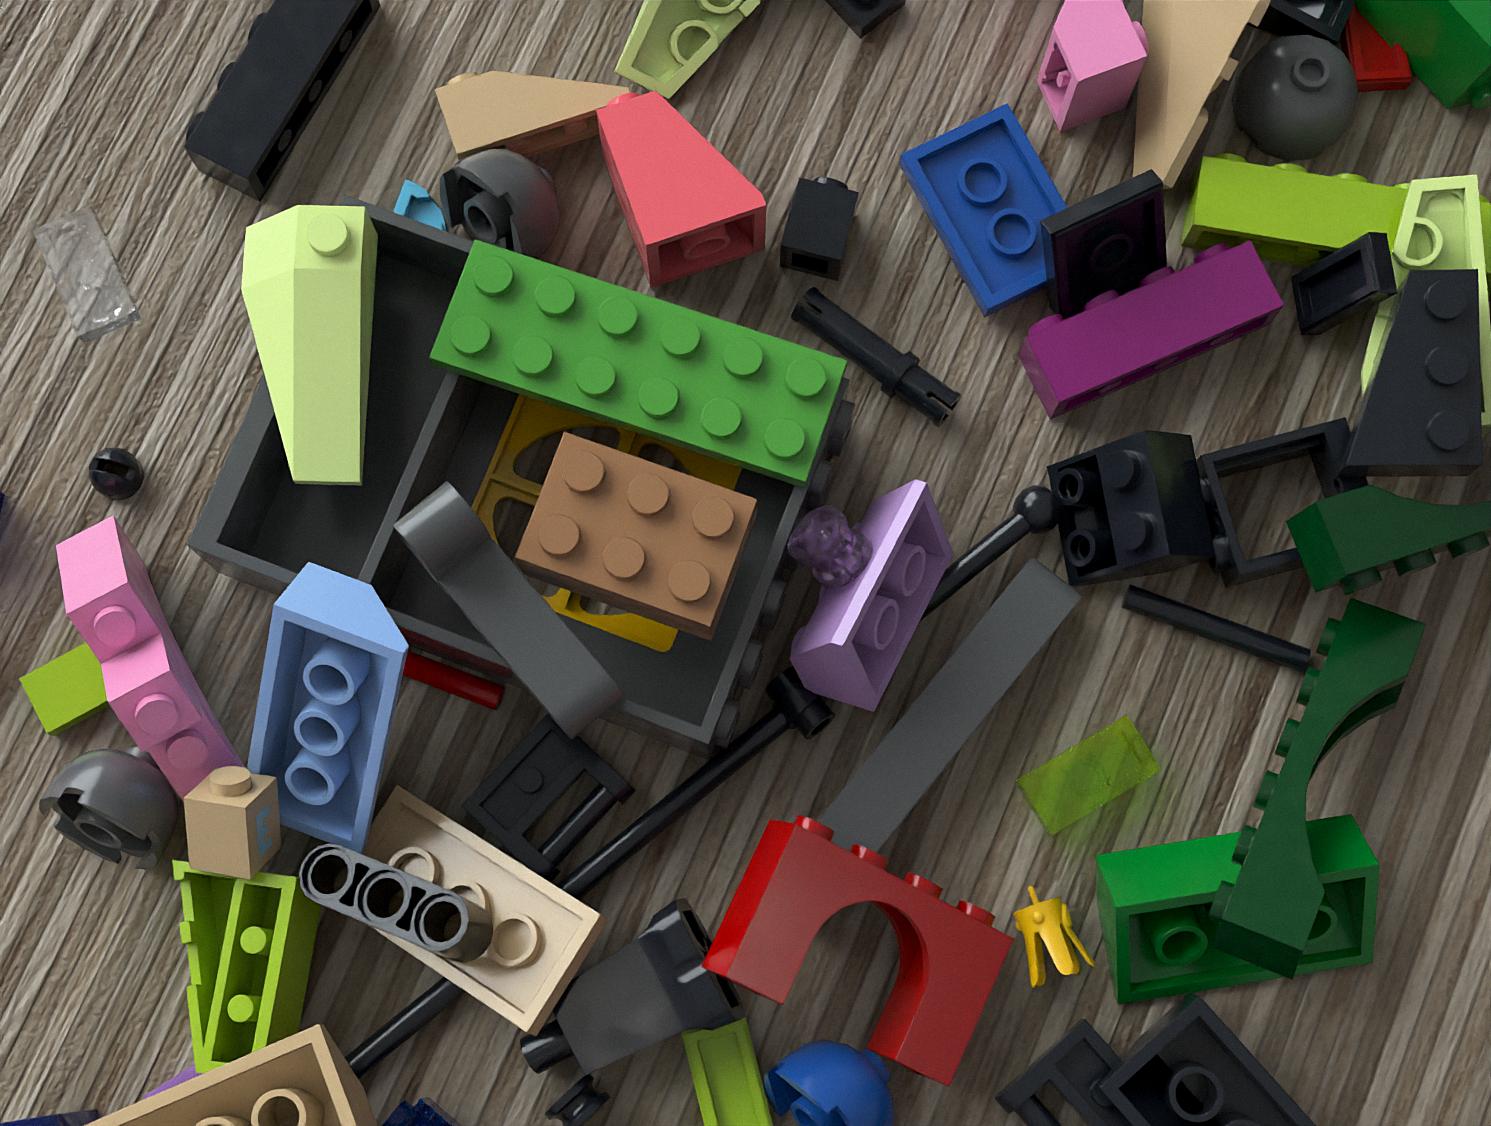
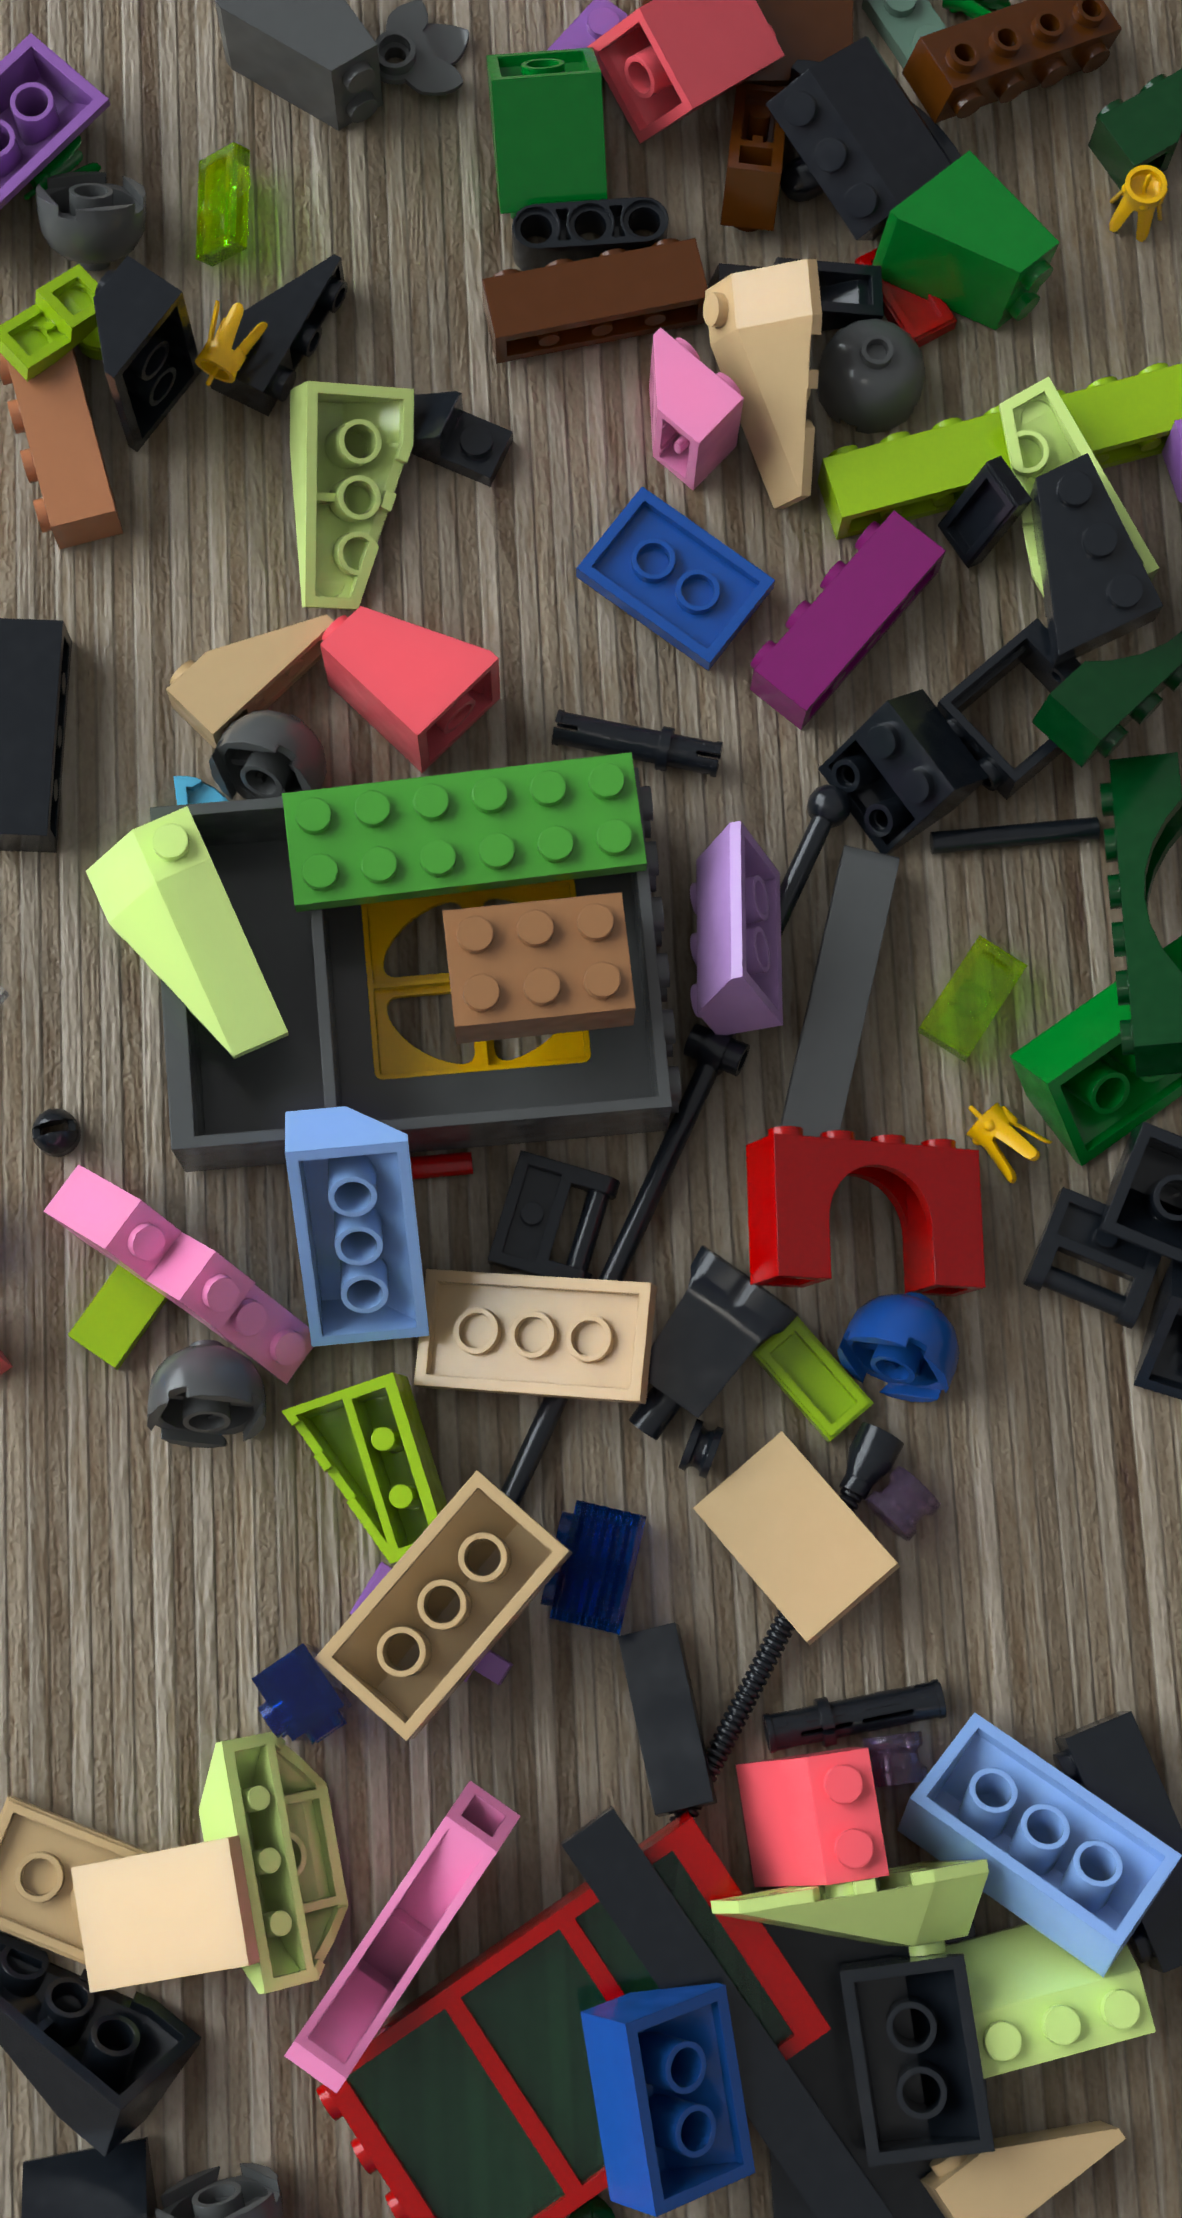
camera: 30 degrees left, 0 degrees up
(232, 822) = (317, 1354): tan brick -> none
(369, 893) = (455, 1348): black beam -> none
(507, 610) = (464, 1076): dark grey beam -> none
(818, 227) = (539, 659): black brick -> none
(830, 547) = (690, 907): clear purple wheel -> none
(1104, 243) = (779, 566): black tile -> none

